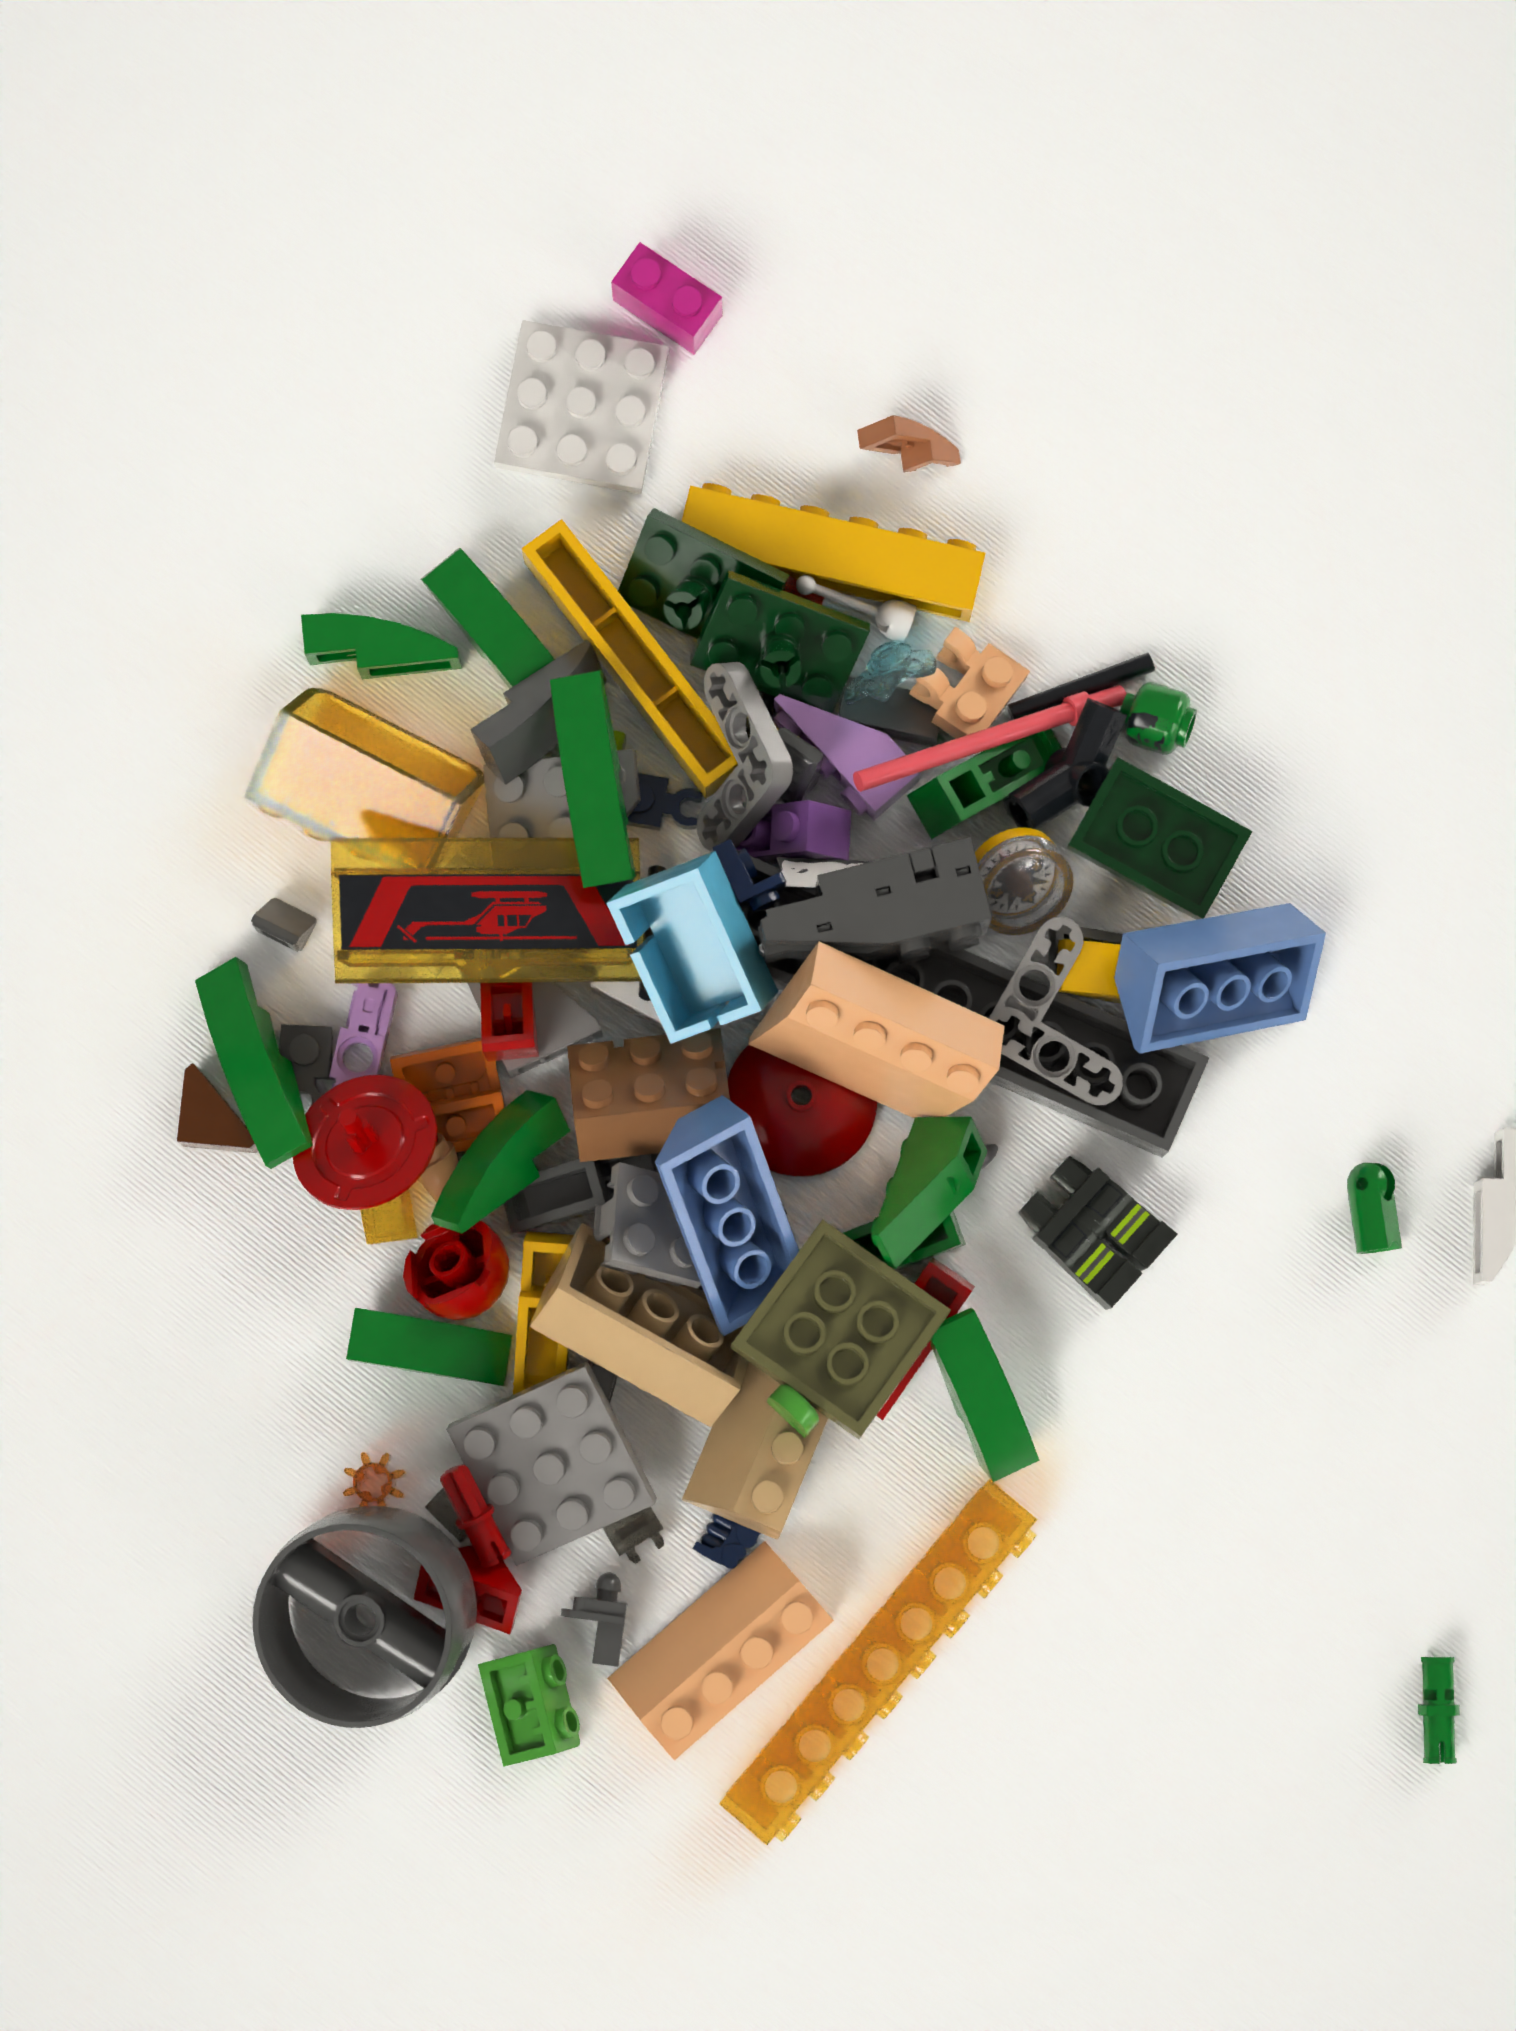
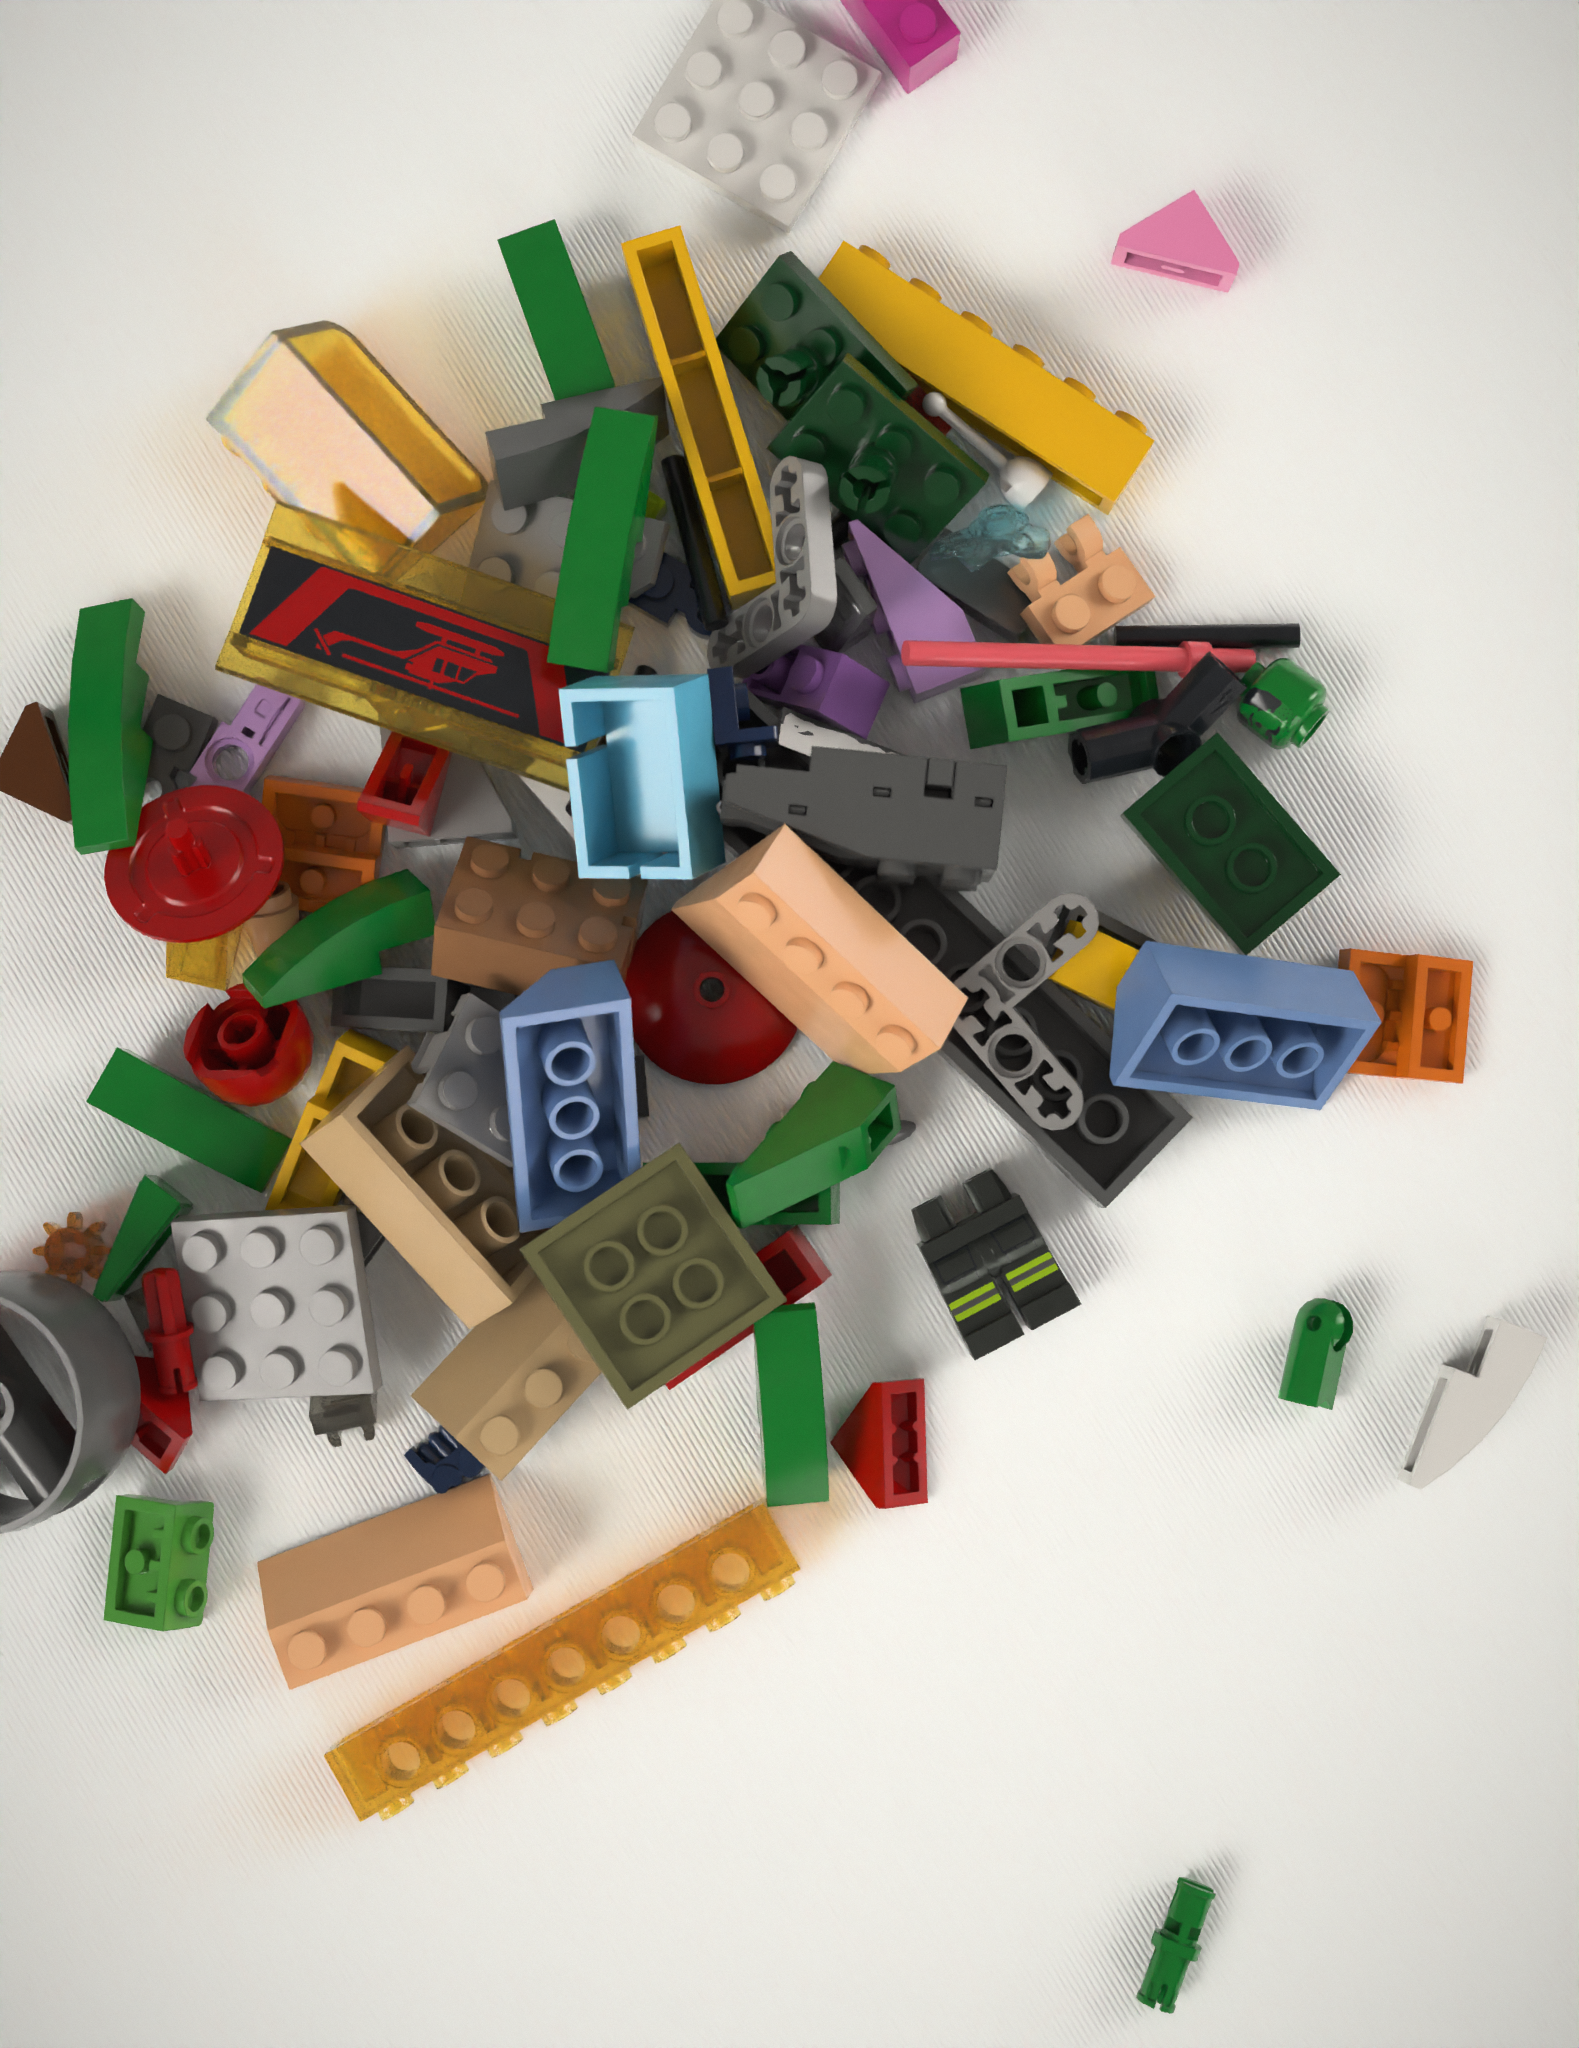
camera: 25 degrees right, 5 degrees up
(284, 924) = (203, 580): dark grey slope -> none
(376, 645) = (418, 298): green slope -> none
(424, 1449) = (140, 1236): none -> green slope
(610, 1618) = (281, 1494): dark grey piece -> none
(658, 757) = (694, 543): none -> black bar
(794, 1409) = (564, 1349): bright green tile -> none
(911, 439) = (1119, 279): nougat slope -> none
(950, 396) = (1179, 245): none -> bright pink slope
(1023, 880) = (1054, 834): clear piece -> none
(1066, 1400) = (887, 1443): none -> red slope
(1356, 918) = (1421, 1014): none -> orange slope

